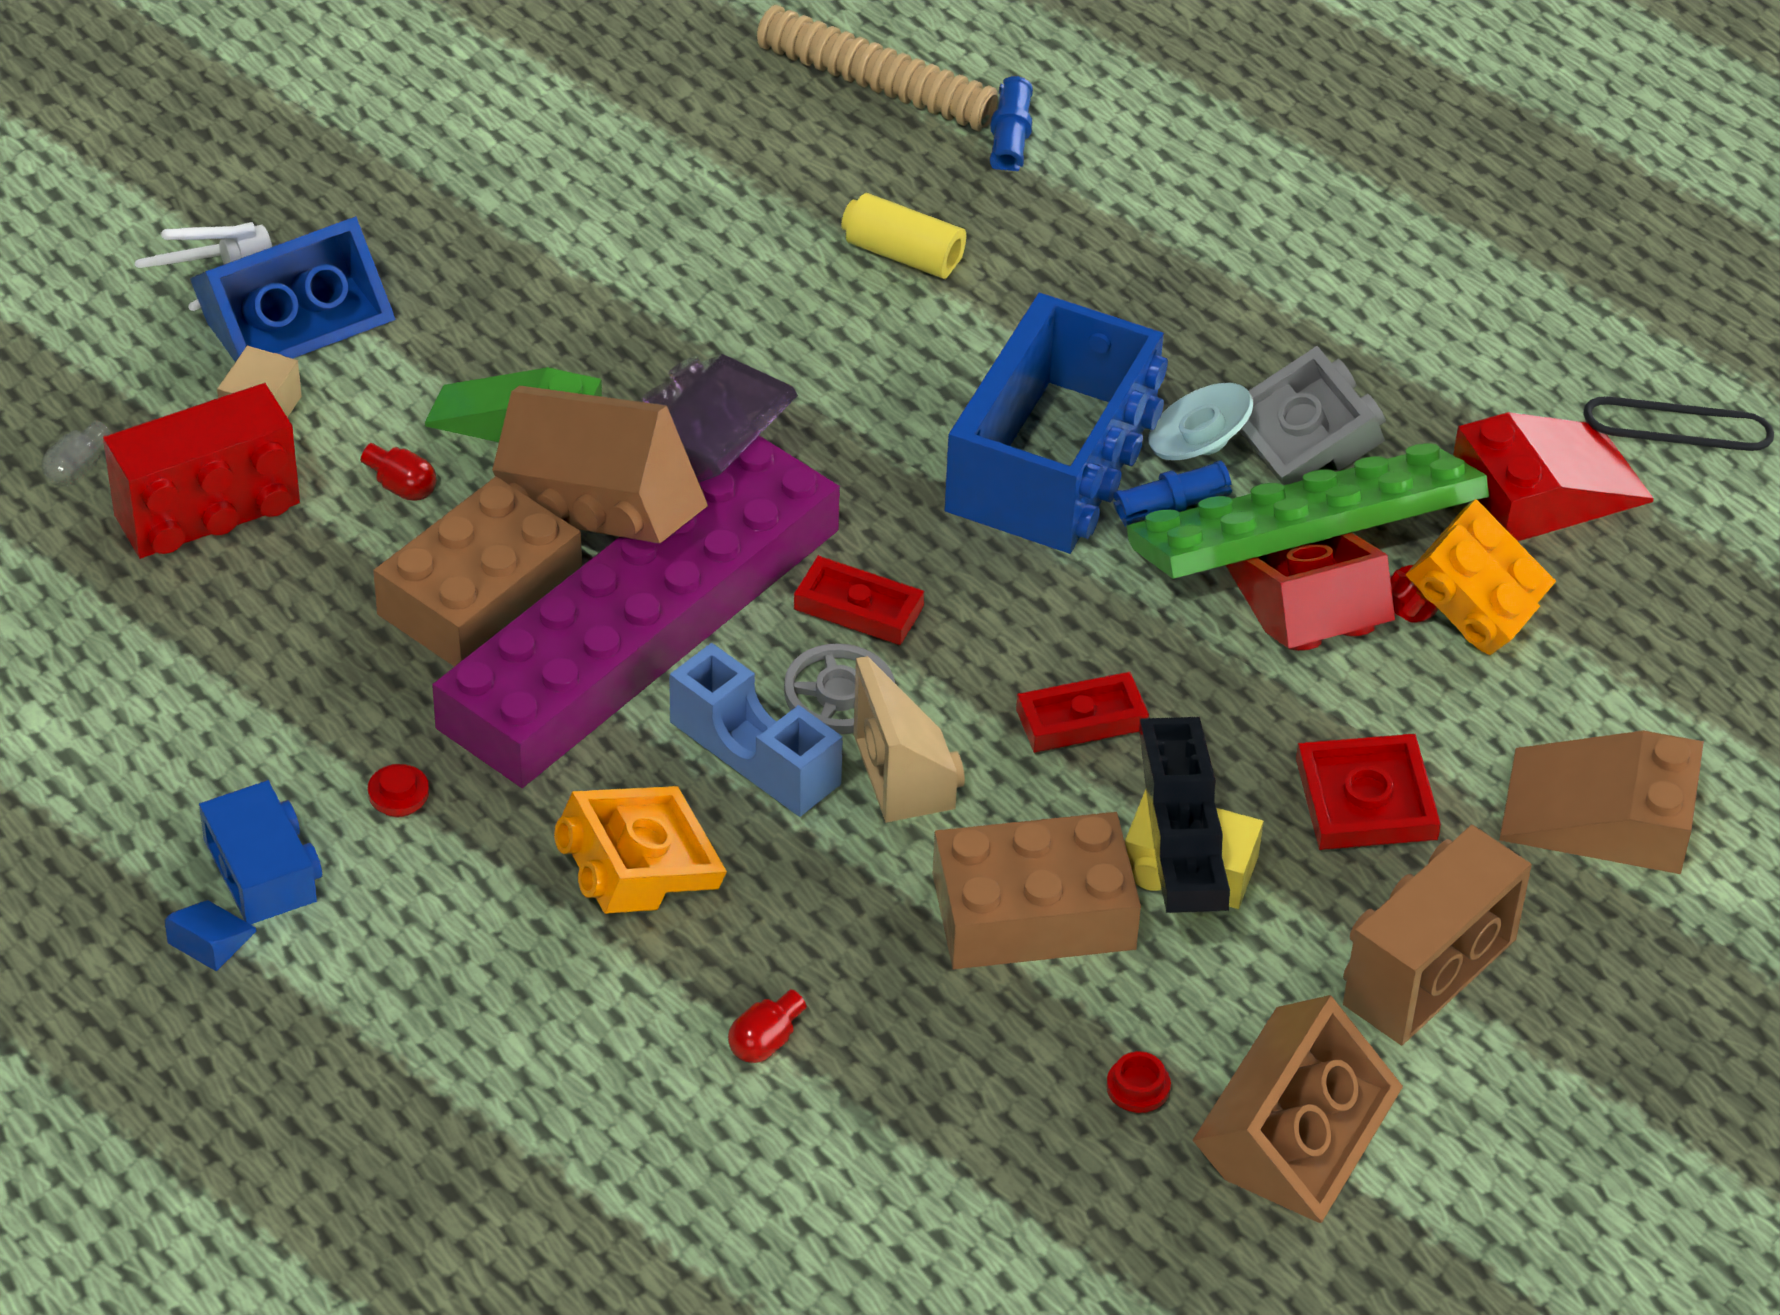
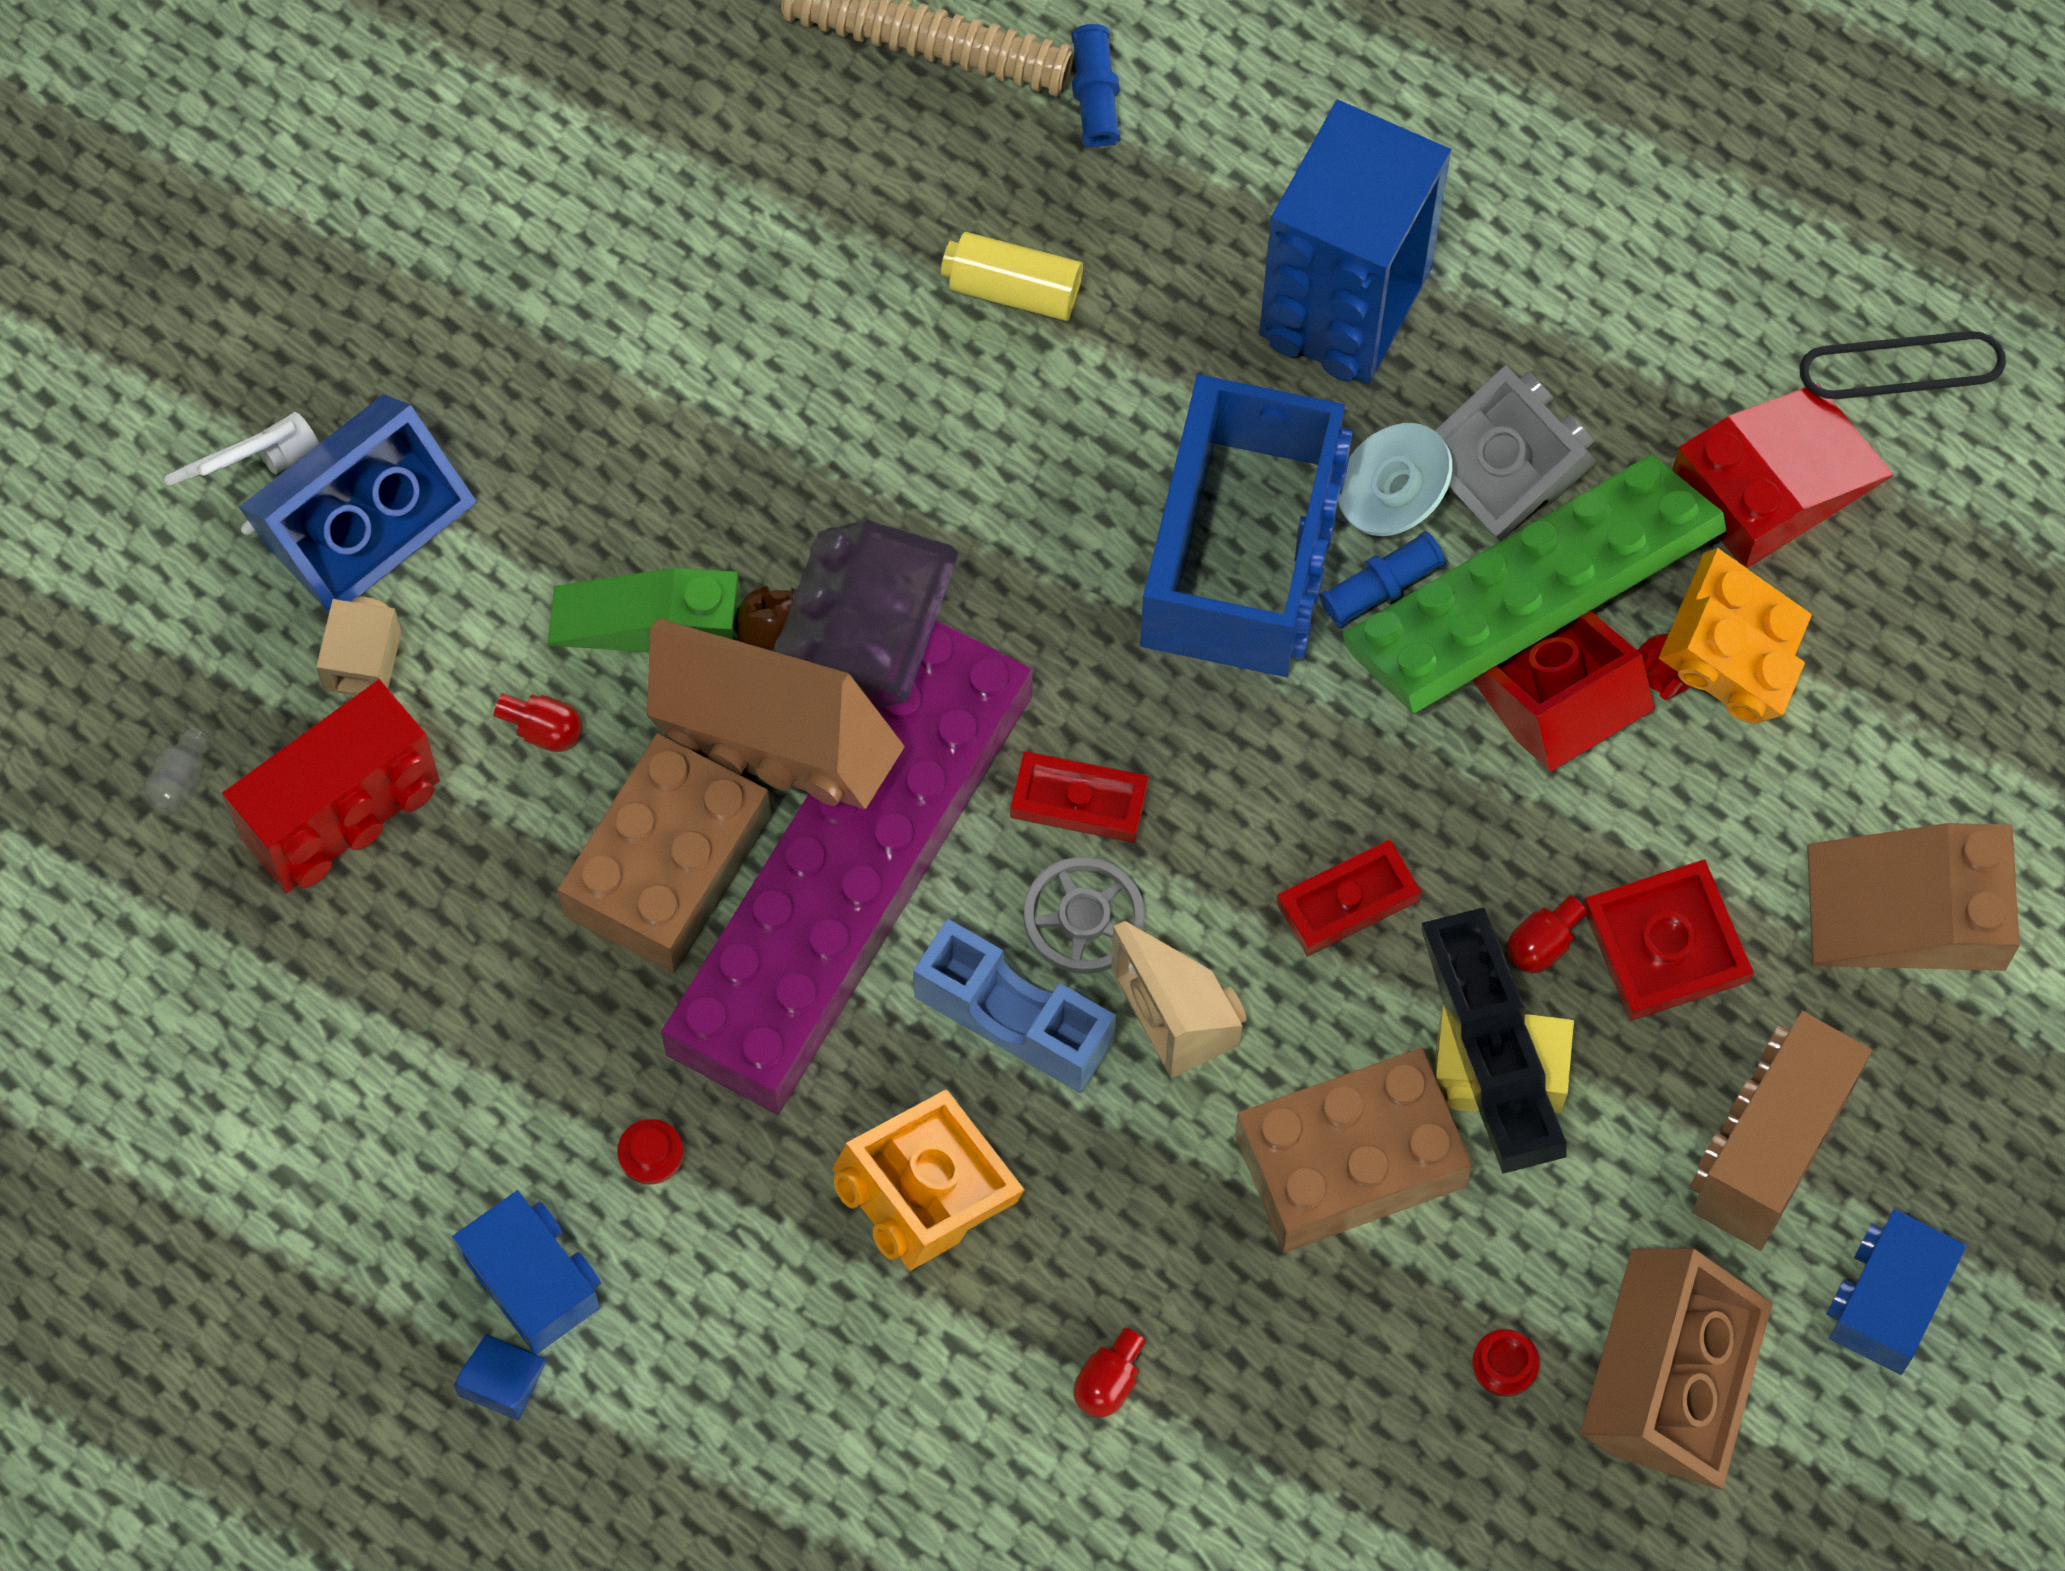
camera: 10 degrees left, 20 degrees up
(1199, 223) = (1352, 242): none -> blue hose
(1255, 771) = (1544, 936): none -> red cylinder
(1520, 1087) = (1896, 1291): none -> blue brick

